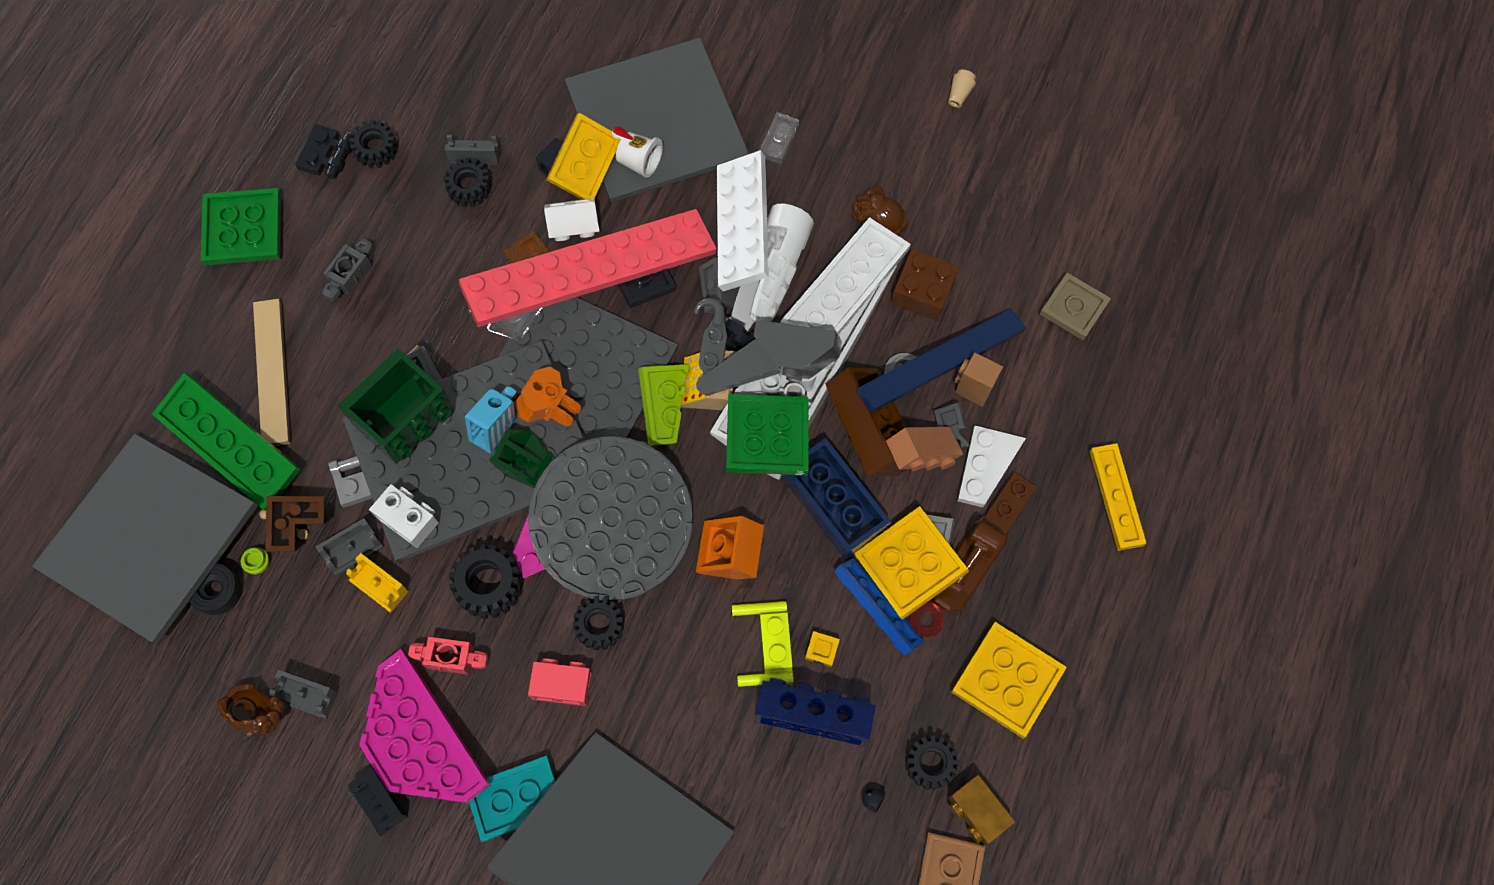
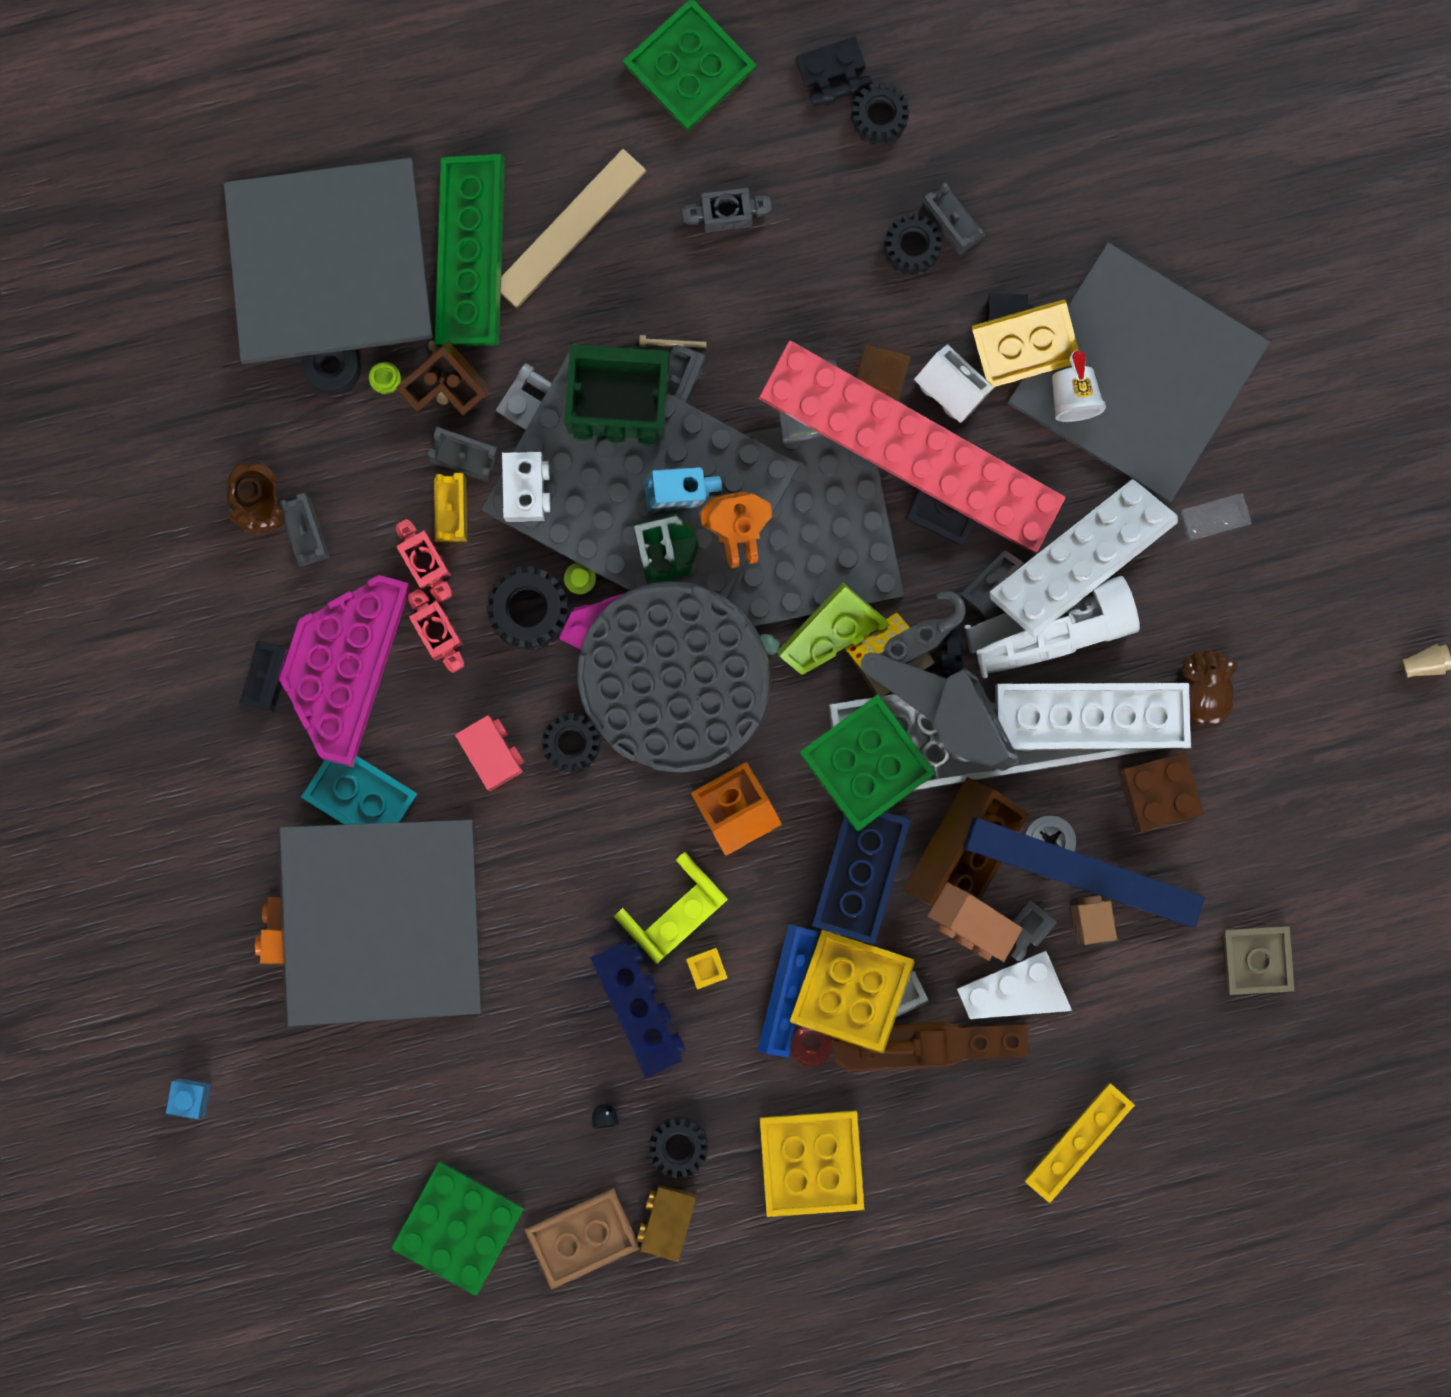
camera: 55 degrees right, 15 degrees up
(376, 627) = (412, 542): none -> coral piece
(496, 534) = (579, 579): none -> lime plate

